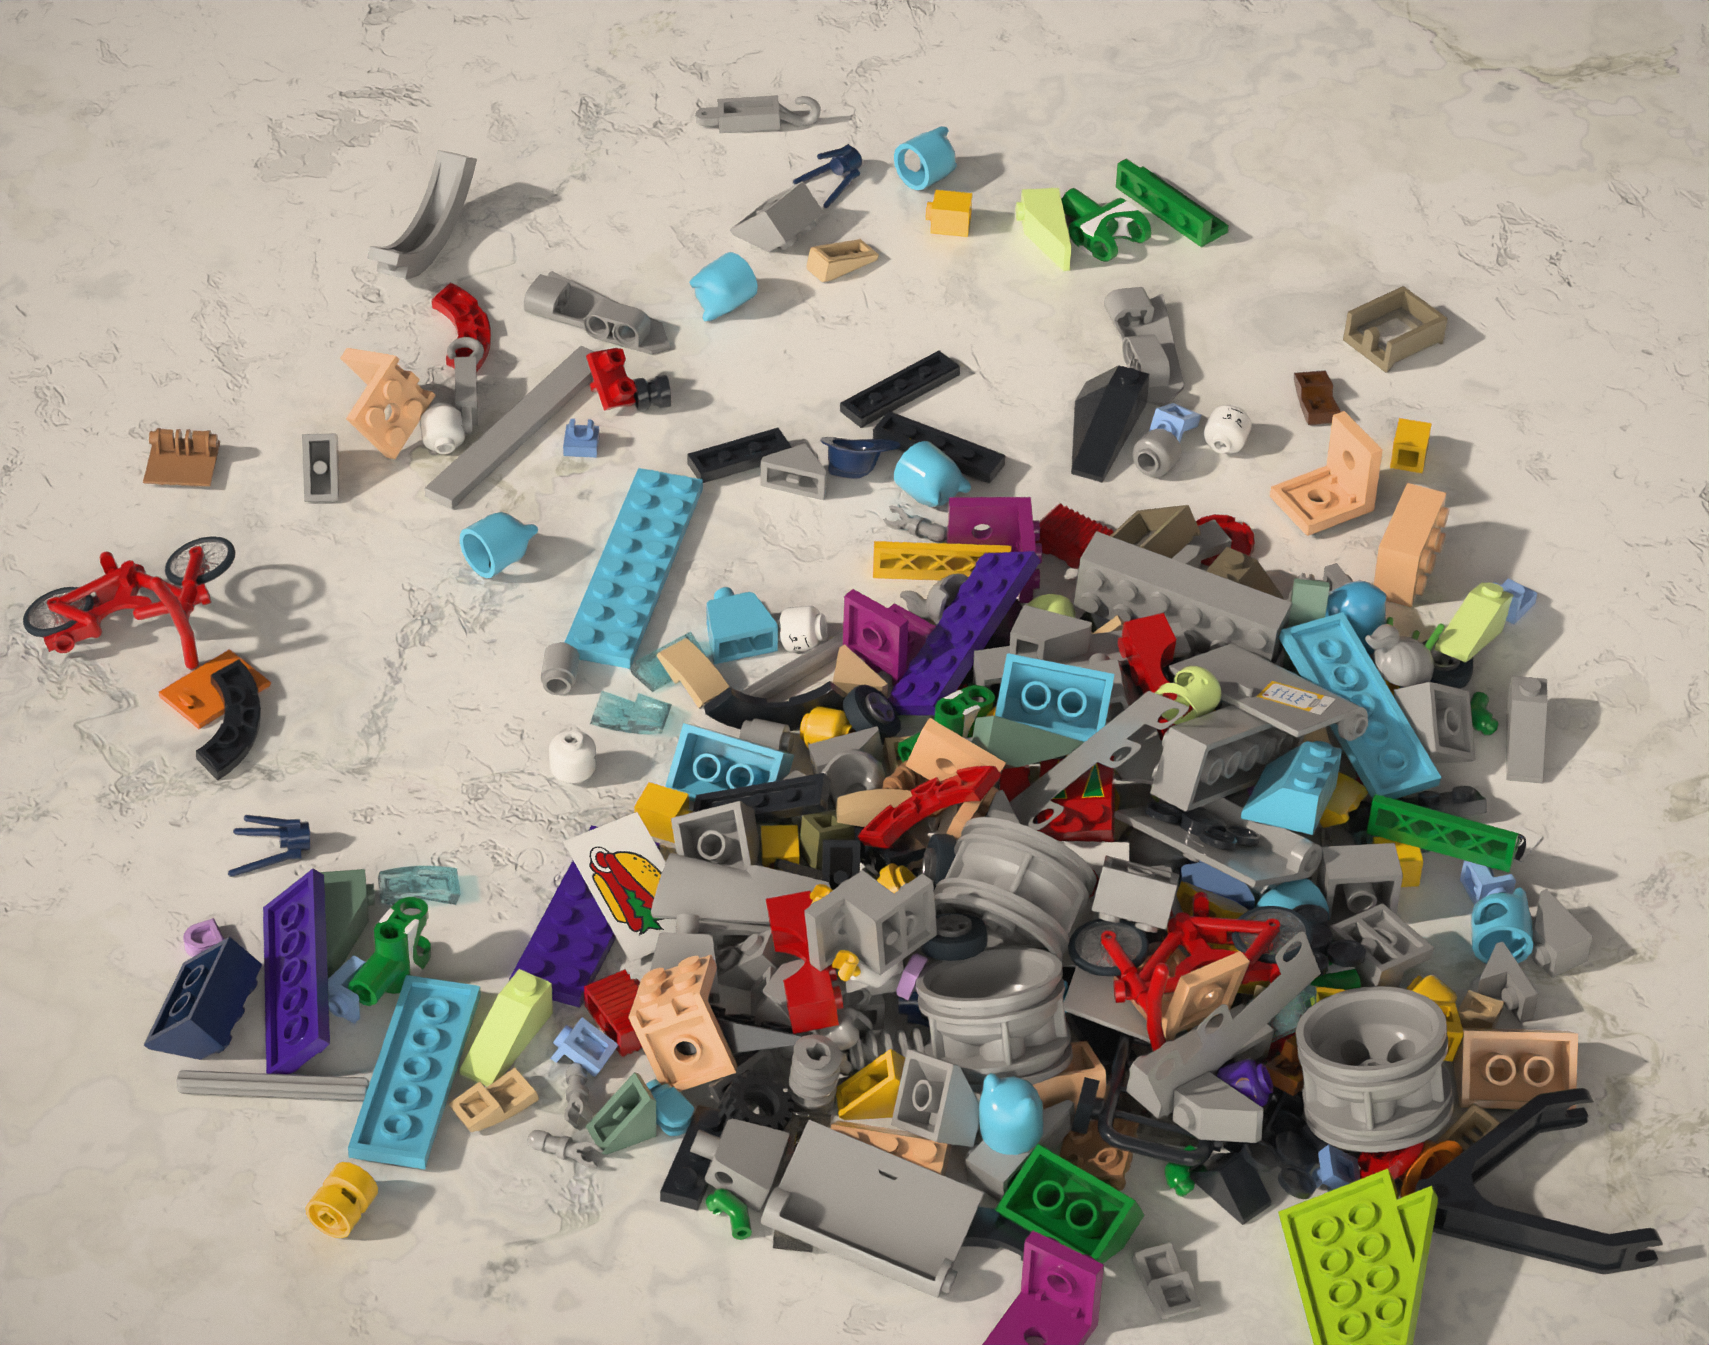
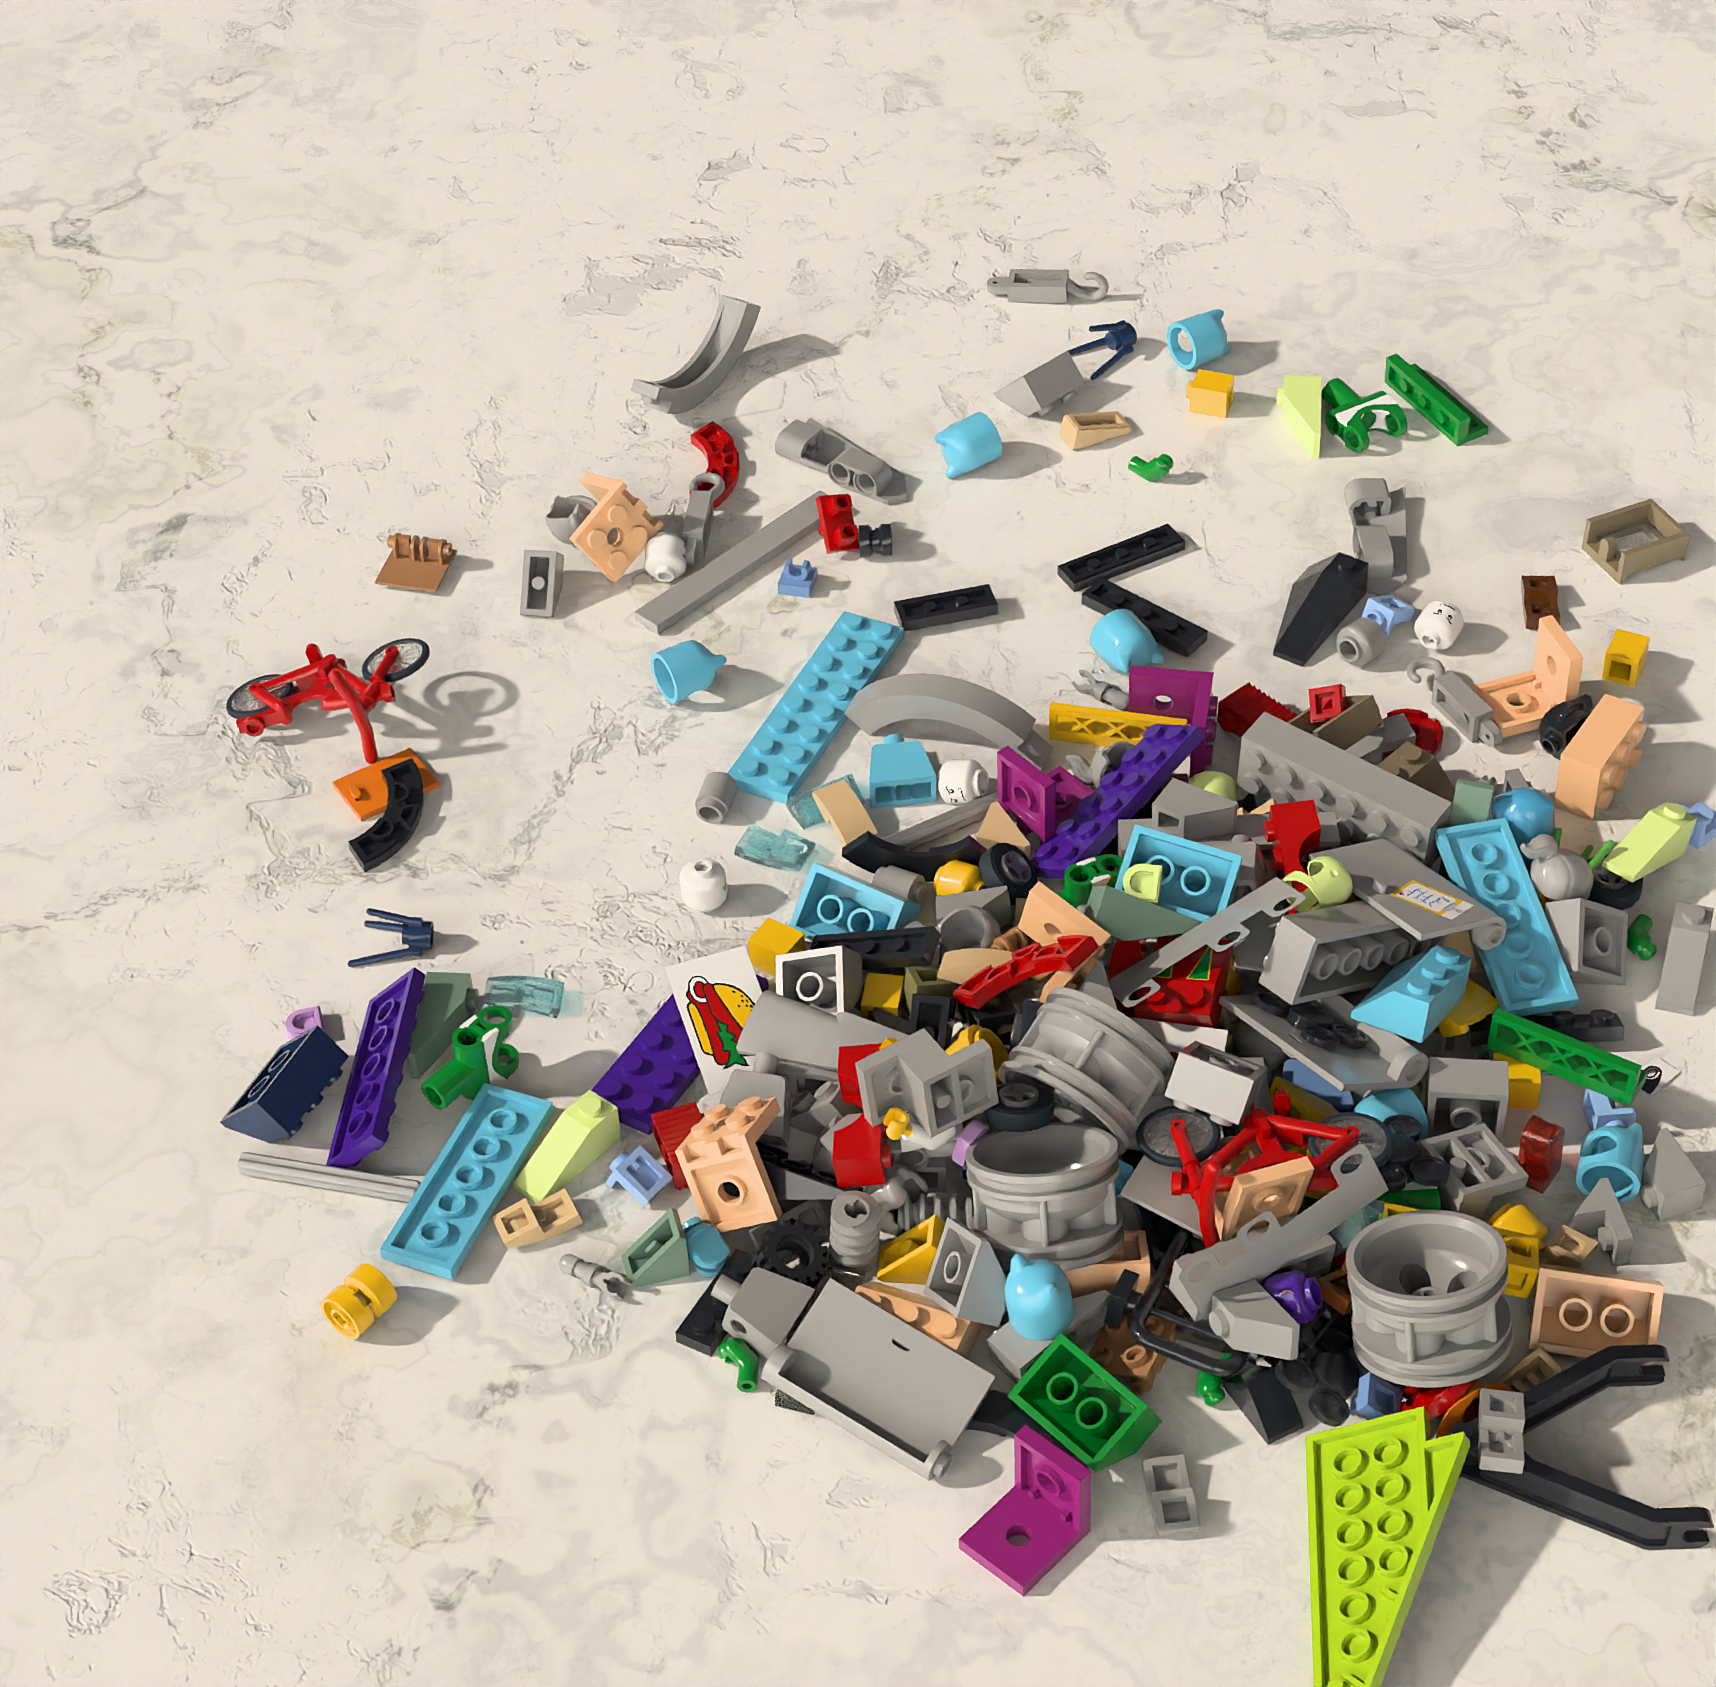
camera: 15 degrees right, 0 degrees up
(335, 397) = (568, 515): none -> light grey hair
(342, 1000) = (414, 1100): light blue bracket -> none
(577, 1095) = (620, 1224): light grey piece -> none
(774, 549) = (952, 702): none -> light grey arch
(795, 472) = (993, 628): light grey slope -> none
(855, 457) = (1057, 619): dark blue piece -> none
(911, 296) = (1153, 469): none -> arm
(1023, 708) = (1144, 882): none -> yellowish green tile
(1143, 517) = (1326, 703): none -> red tile
(1263, 504) = (1458, 702): none -> light grey piece
(1369, 518) = (1562, 724): none -> black hand
(1437, 923) = (1541, 1152): none -> clear red leg
(1460, 1182) = (1501, 1431): none -> light grey slope

